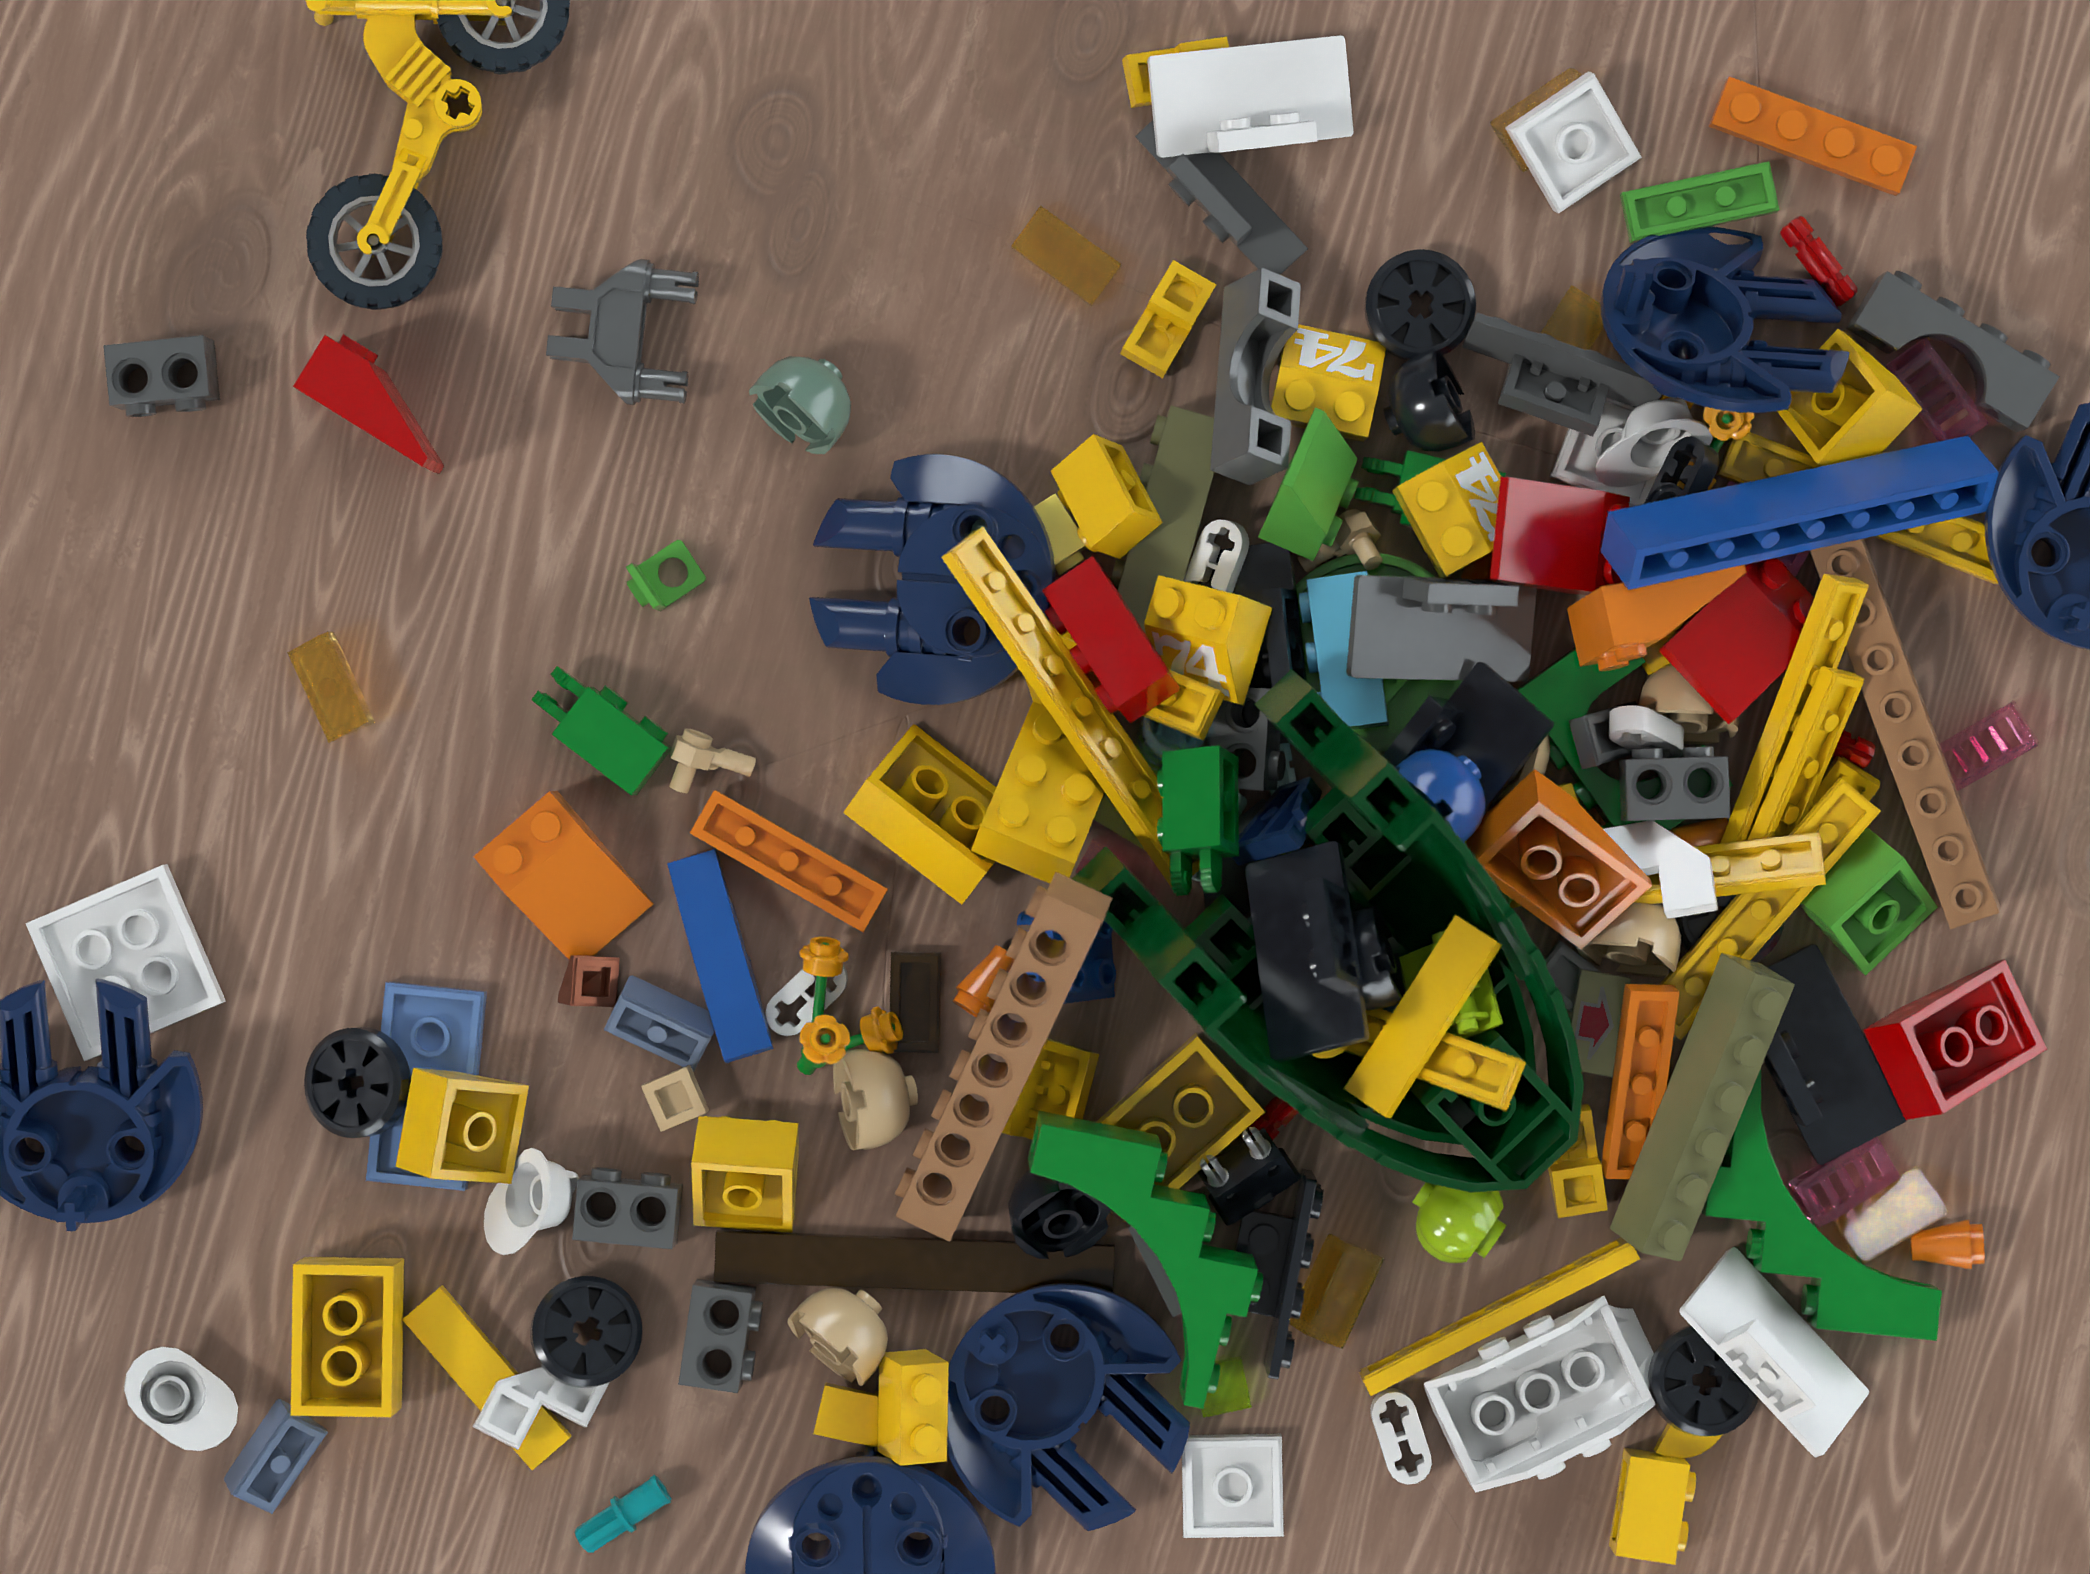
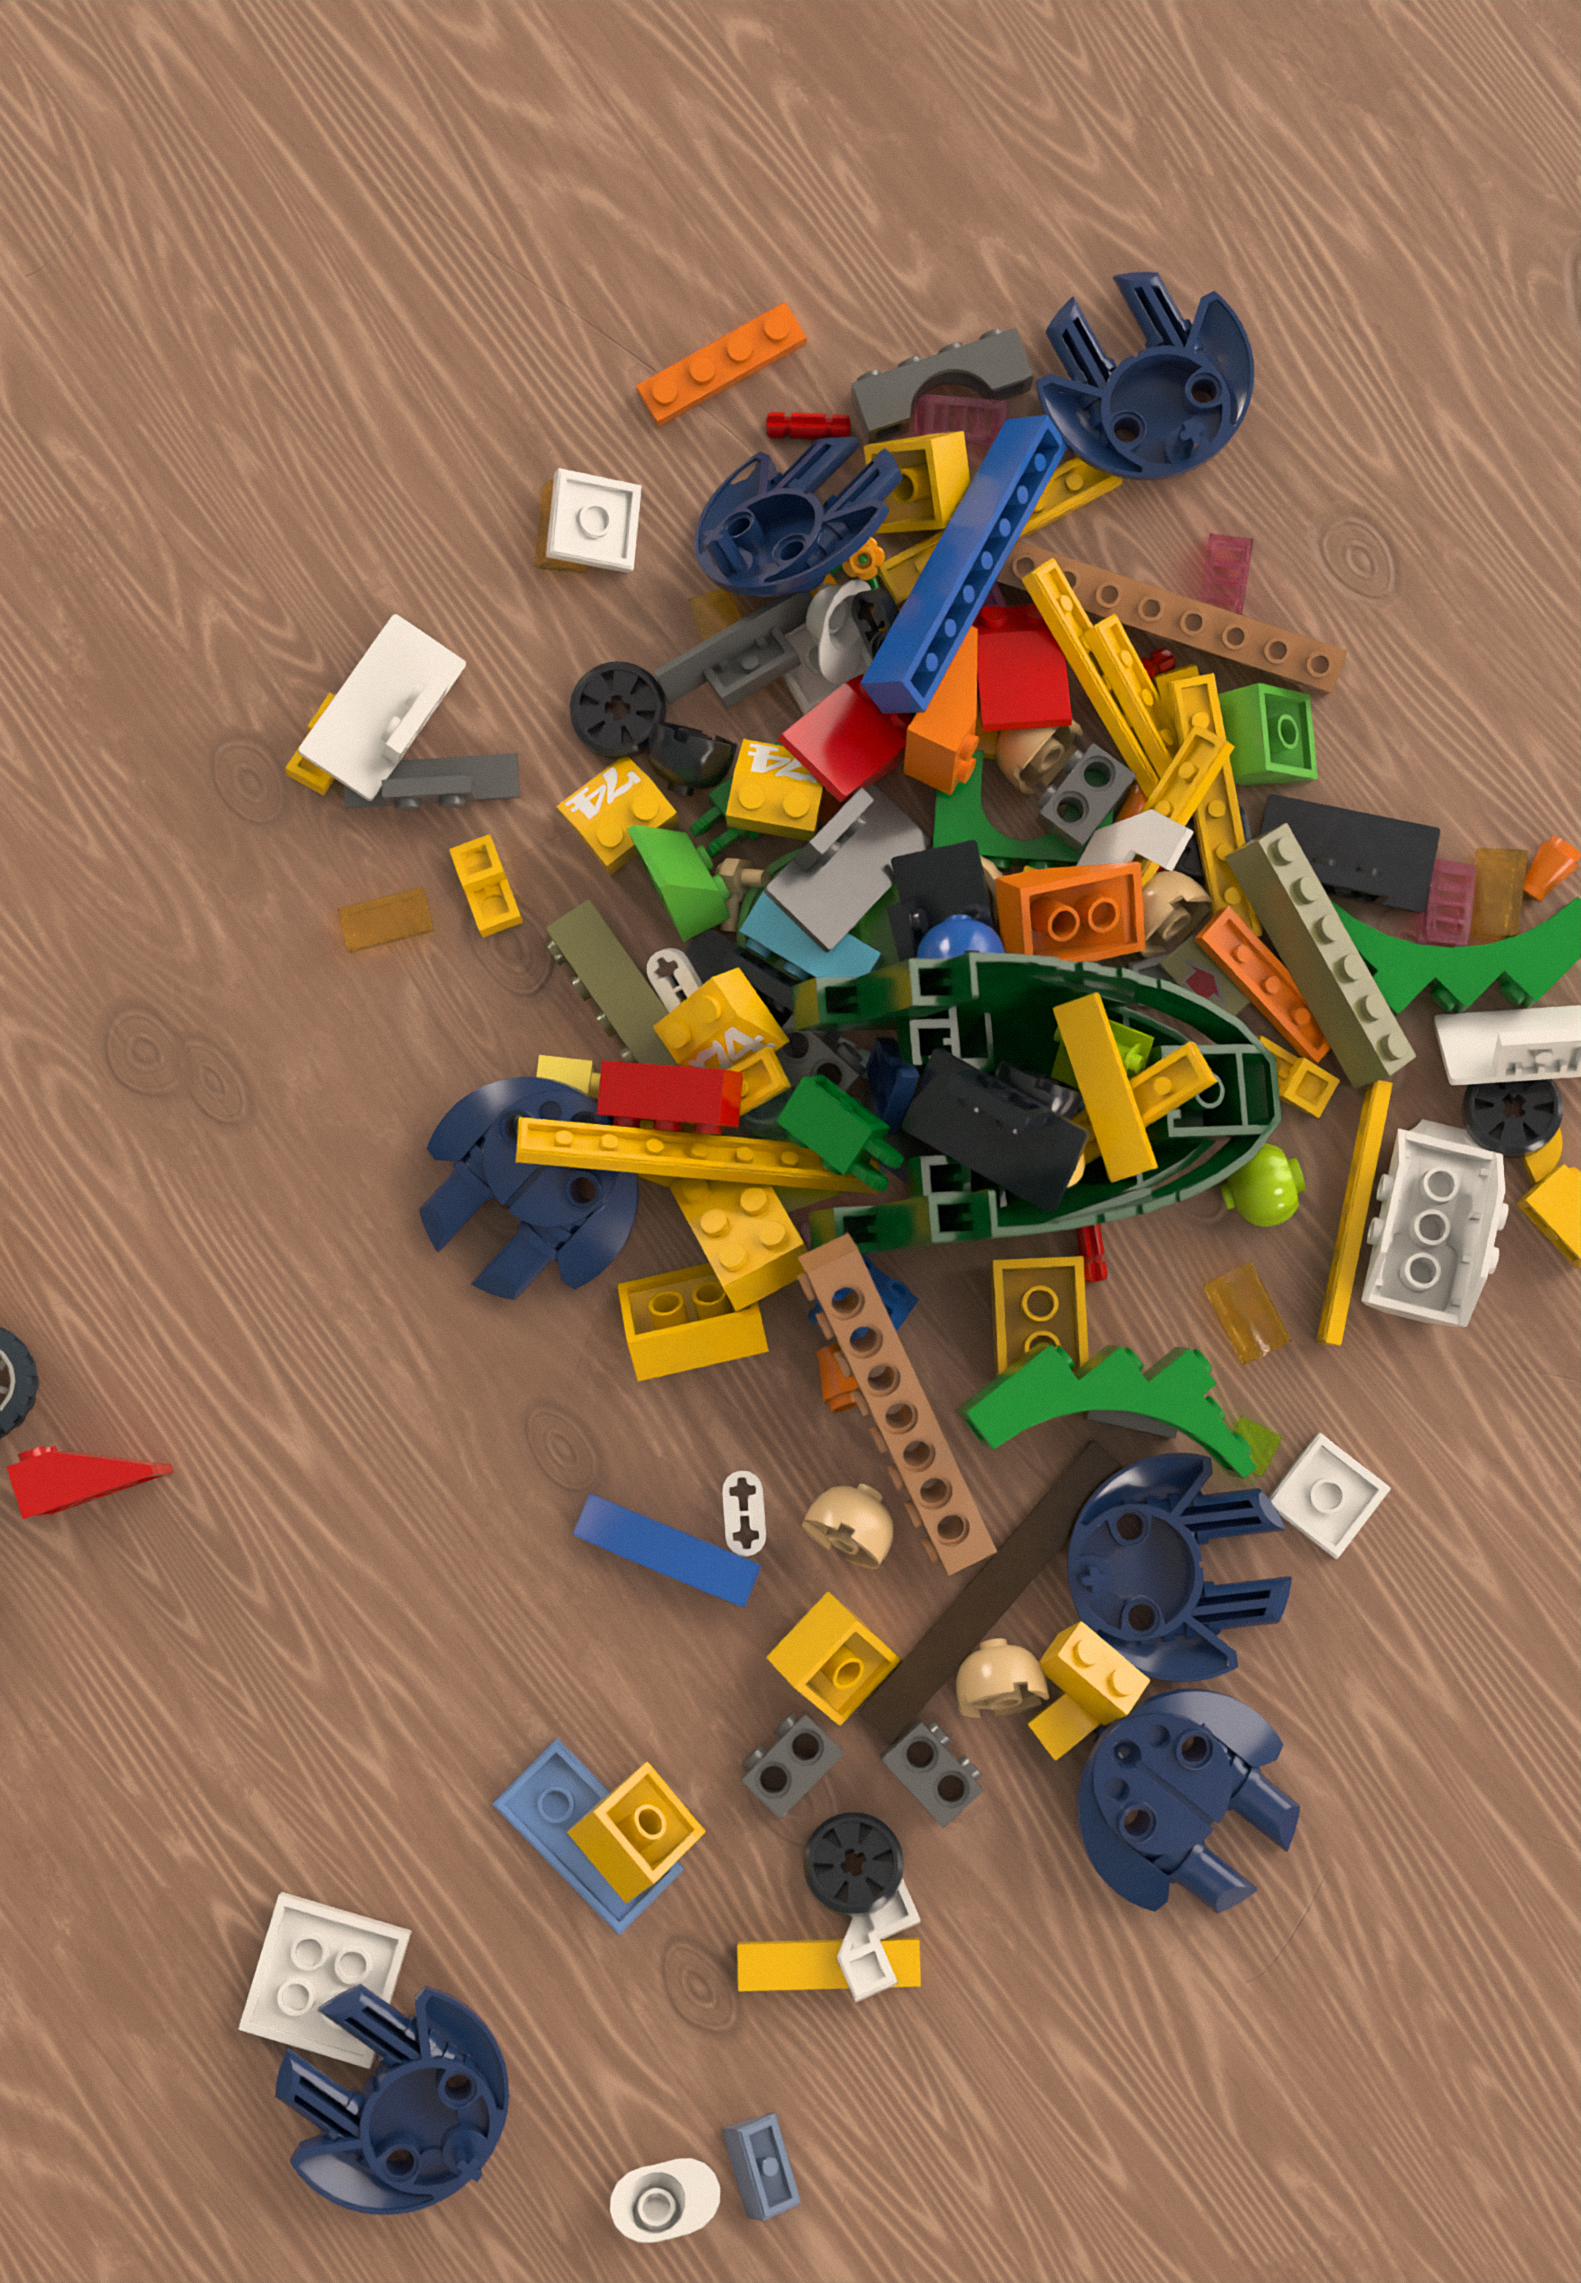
camera: 50 degrees left, 5 degrees down
(330, 686) = (254, 1671): clear yellow slope -> none
(347, 1337) = (718, 2041): yellow brick -> none
(361, 1110) = (570, 1885): black wheel -> none
(534, 1201) = (730, 1826): white piece -> none
(563, 878) = (523, 1616): orange slope -> none
(590, 981) = (610, 1657): copper slope -> none
(606, 734) = (448, 1502): green hinge -> none
(618, 329) = (177, 1264): dark grey connector -> none
(622, 1514) = (1004, 1947): teal axle -> none
(649, 588) = (369, 1389): bright green bracket -> none
(661, 1023) = (680, 1631): sand blue slope -> none
(675, 1098) = (740, 1664): tan plate -> none
(695, 752) = (511, 1451): tan piece -> none
(789, 860) = (640, 1447): orange plate -> none
(804, 400) = (333, 1176): sand green cylinder -> none
(824, 1038) = (780, 1519): light orange plant -> none
(916, 999) = (810, 1441): dark brown tile -> none
(1054, 1217) = (1038, 1462): black cylinder -> none
(1055, 1085) = (947, 1386): yellow bracket -> none
(1105, 497) = (570, 1022): yellow brick -> none
(1247, 1175) = (1117, 1306): black piece -> none
(1255, 325) = (538, 826): dark grey arch -> none
(1280, 1250) = (1190, 1324): black bracket -> none
(1389, 1439) = (1388, 1339): white beam -> none
(1593, 740) = (1012, 816): dark grey tile -> none
(1645, 729) = (1027, 785): white beam -> none
(1700, 202) = (703, 471): bright green tile -> none
(1955, 1041) = (1411, 754): red slope -> none

